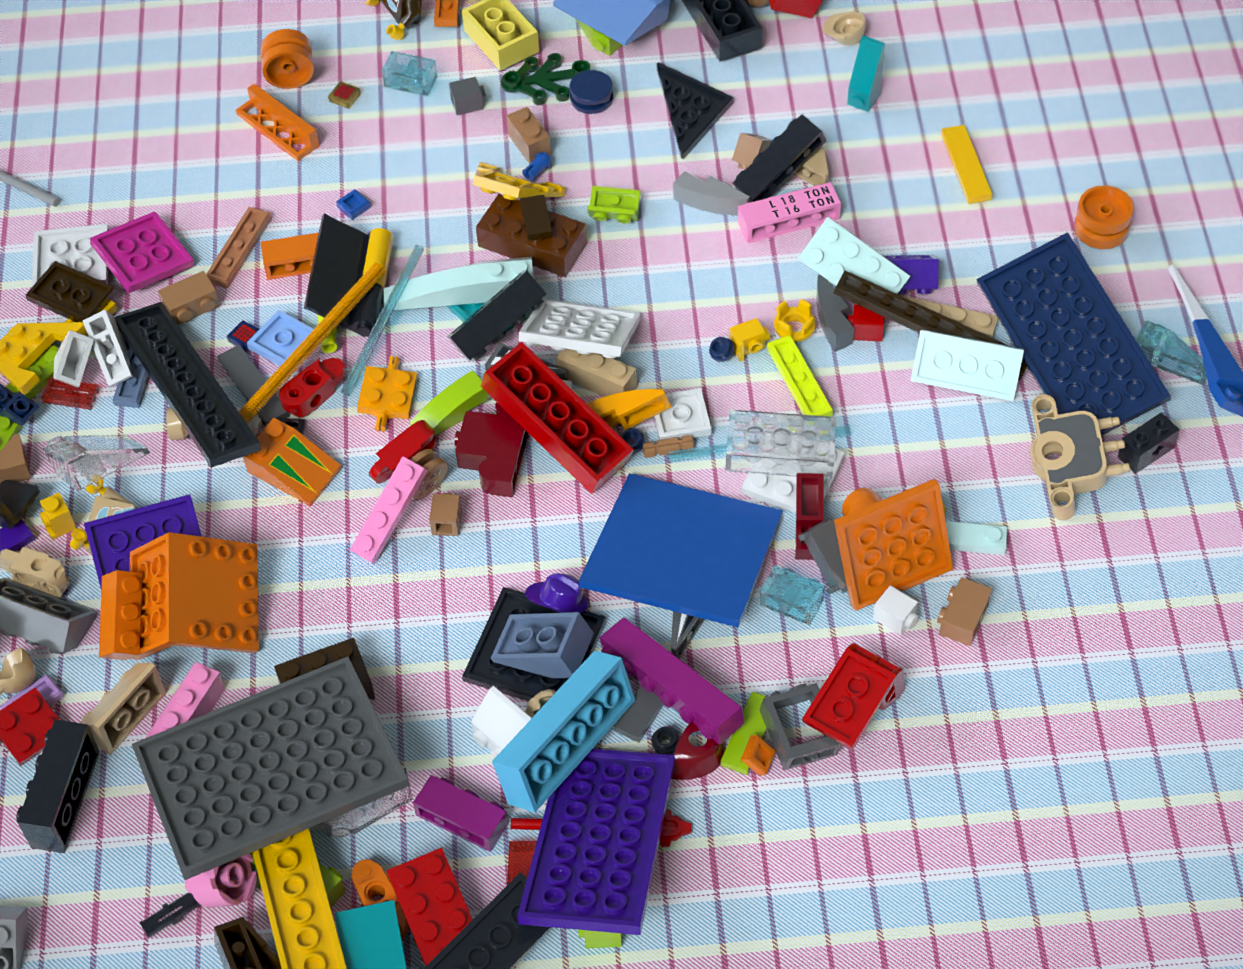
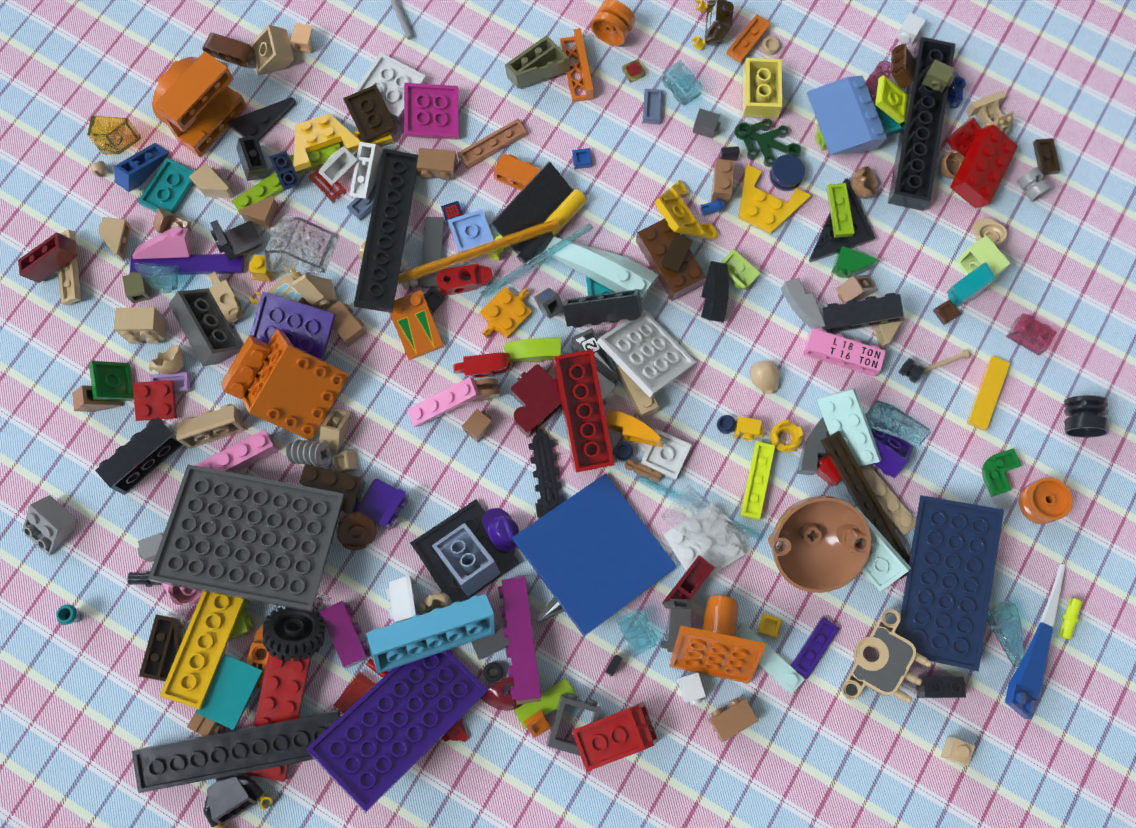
camera: 30 degrees right, 20 degrees up
(142, 490) = (316, 290): none -> tan slope
(151, 875) = (149, 546): none -> light grey brick
(212, 510) = (345, 324): none -> medium nougat brick
(231, 141) = (537, 63): none -> olive wedge
(262, 661) = (308, 452): none -> light grey piece
(279, 620) = (335, 428): none -> tan slope
(312, 642) = (345, 461): none -> tan slope
(391, 698) = (356, 531): none -> reddish brown tile
(392, 115) = (652, 106): none -> sand blue tile
(399, 657) = (383, 503): none -> dark purple bracket
(400, 838) = (293, 633): none -> black wheel
(431, 350) = (549, 303): none -> dark grey brick
(514, 104) = (729, 153): none -> black tile
(560, 514) = (546, 473): none -> black bar
(591, 139) = (764, 209): none -> yellow wing
(608, 234) = (716, 292): none -> black slope
(676, 90) = (840, 210): none -> lime plate
(680, 55) = (864, 183): none -> medium nougat hair
(725, 130) = (851, 263): none -> green slope
(725, 281) = (765, 376): none -> tan hair
(794, 644) = (613, 665): none -> black tile
(848, 43) = (981, 252): none -> yellowish green brick
(862, 120) = (946, 312): none -> reddish brown tile
(872, 187) = (911, 370): none -> black wheel
(900, 358) = (824, 557): none -> nougat piece
(901, 239) = (895, 422): none -> clear light blue slope
(913, 144) = (965, 353): none -> tan piece
(962, 88) = (1029, 338): none -> clear pink brick
(991, 492) = (814, 647): none -> dark purple tile
(1032, 223) = (994, 469): none -> green plate
(1077, 121) = (1086, 416): none -> black wheel
(1216, 488) = (957, 751): none -> tan brick
(1219, 305) = (1070, 618): none -> neon yellow pin

